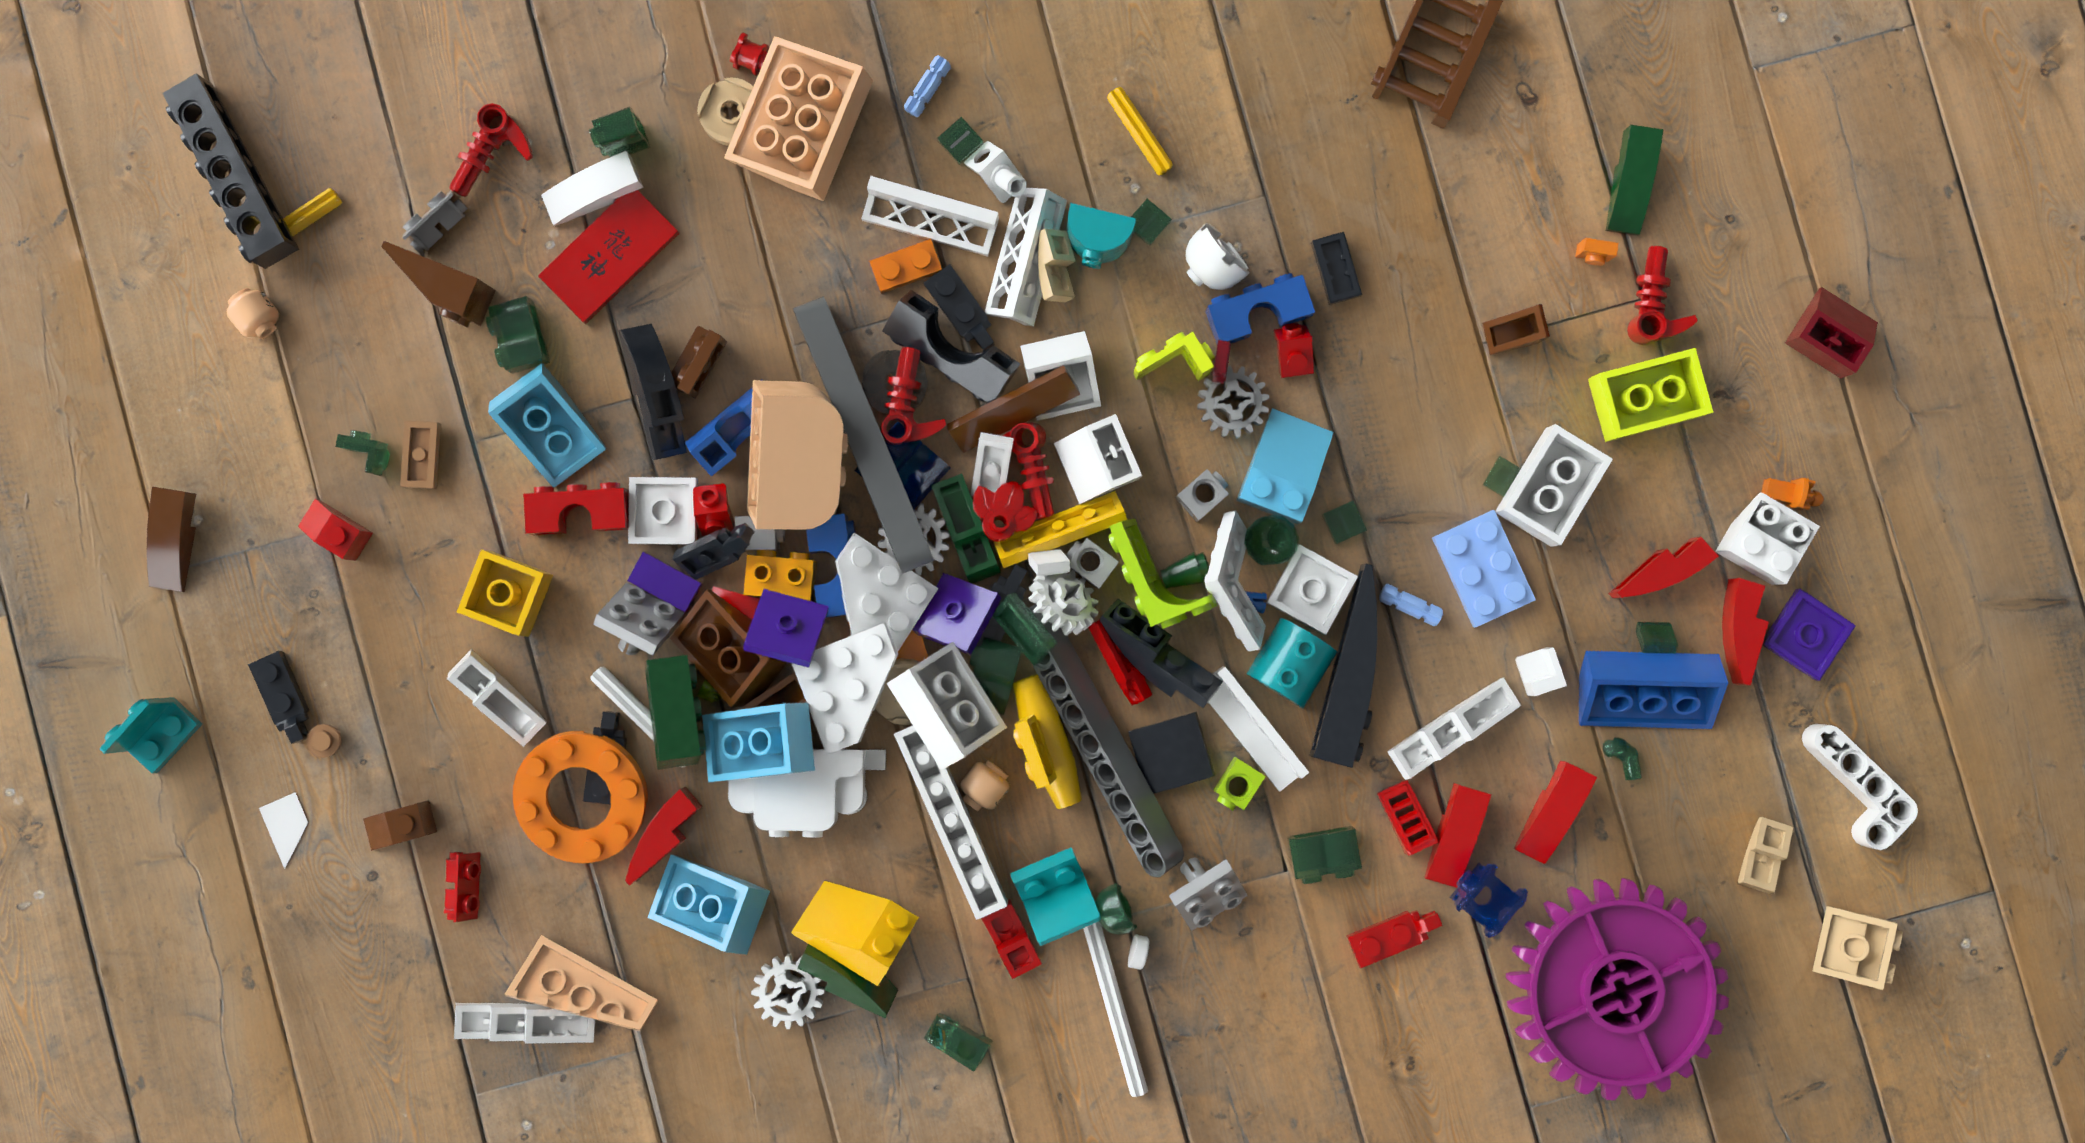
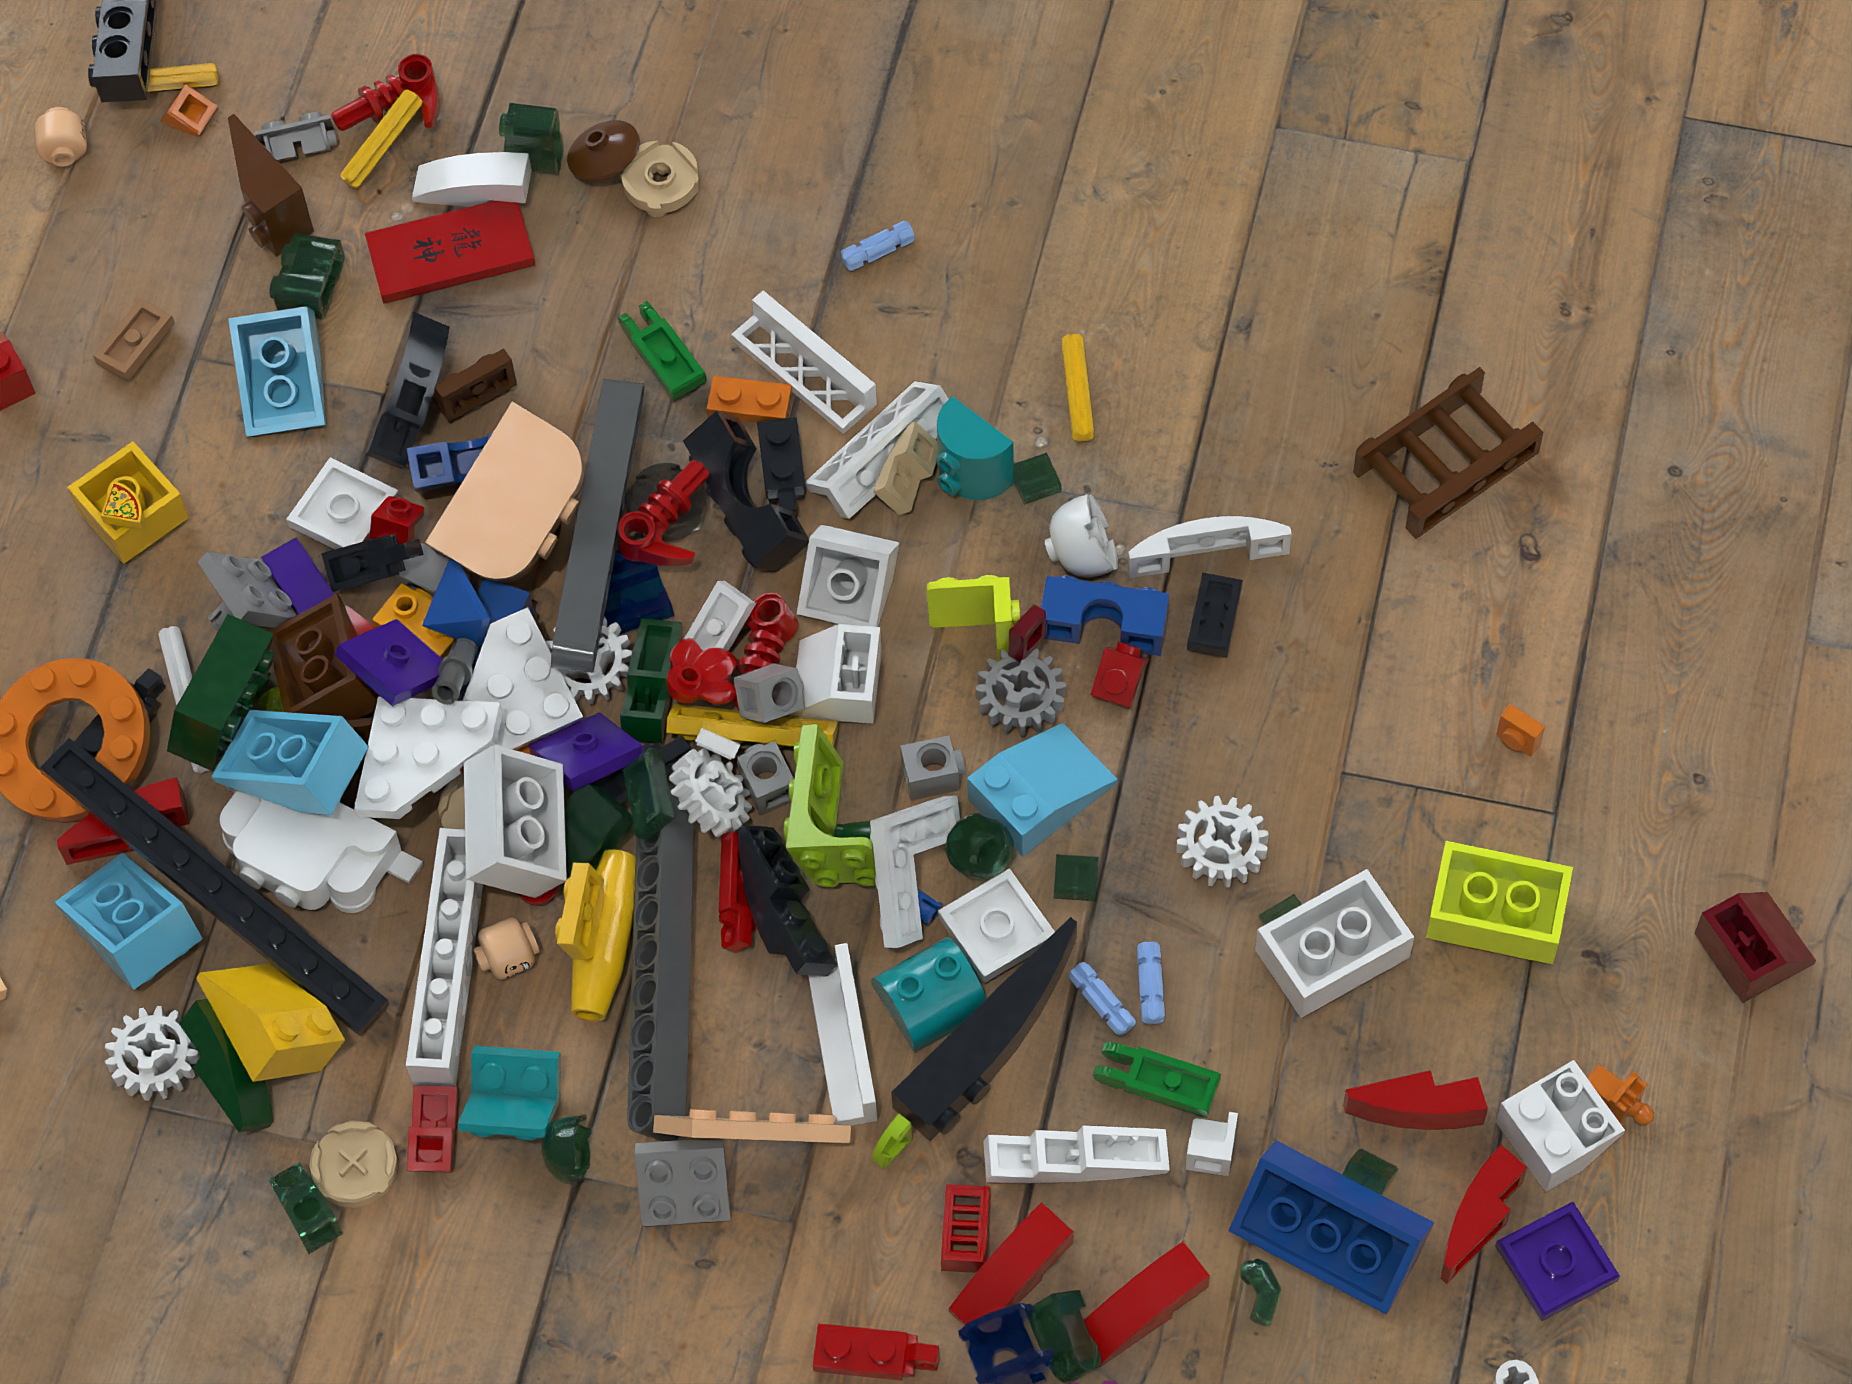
camera: 30 degrees right, 25 degrees down
(335, 238) = (189, 111): none -> orange slope
(377, 451) = (85, 304): clear green bracket -> none
(496, 698) = (48, 602): white slope -> none
(501, 189) = (381, 139): none -> yellow axle
(510, 609) = (122, 507): none -> tile
(547, 510) = (229, 449): red arch -> none
(686, 111) = (603, 151): none -> reddish brown dish
(748, 54) = (712, 134): red brick -> none
(755, 856) = (214, 886): none -> black plate
(799, 117) = (726, 210): light nougat slope -> none
(803, 560) = (457, 608): none -> blue slope
(821, 260) = (663, 352): none -> green hinge
(835, 613) = (455, 671): none -> dark grey pin
(960, 140) = (880, 311): clear green tile -> none
(971, 990) = (354, 1164): none -> tan tile
(997, 172) = (901, 357): white bracket -> none
(1014, 408) = (788, 576): reddish brown tile -> none
(1062, 503) = (756, 696): none -> light grey brick
(1115, 1010) = (503, 1262): white axle -> none
(1138, 952) = (566, 1212): white tile -> none
(1172, 752) = (736, 1019): black slope -> none
(1236, 840) = (745, 1126): none -> light nougat wing
(1238, 769) = (793, 1070): lime brick -> none
(1324, 853) = (844, 1213): clear green brick -> none
(1328, 781) = (892, 1141): none -> lime tile
(1334, 191) = (1204, 535): none -> white slope
(1437, 575) = (1150, 983): none -> light blue axle
(1447, 453) = (1217, 857): none -> white gear
(1483, 568) = (1209, 1002): light blue plate -> none
(1483, 643) = (1160, 1078): none -> green hinge
(1515, 861) = (1061, 1327): none -> clear green leg
(1516, 330) = (1382, 768): reddish brown slope -> none
(1634, 179) = (1601, 678): dark green slope -> none
(1650, 306) = (1553, 816): red piece -> none

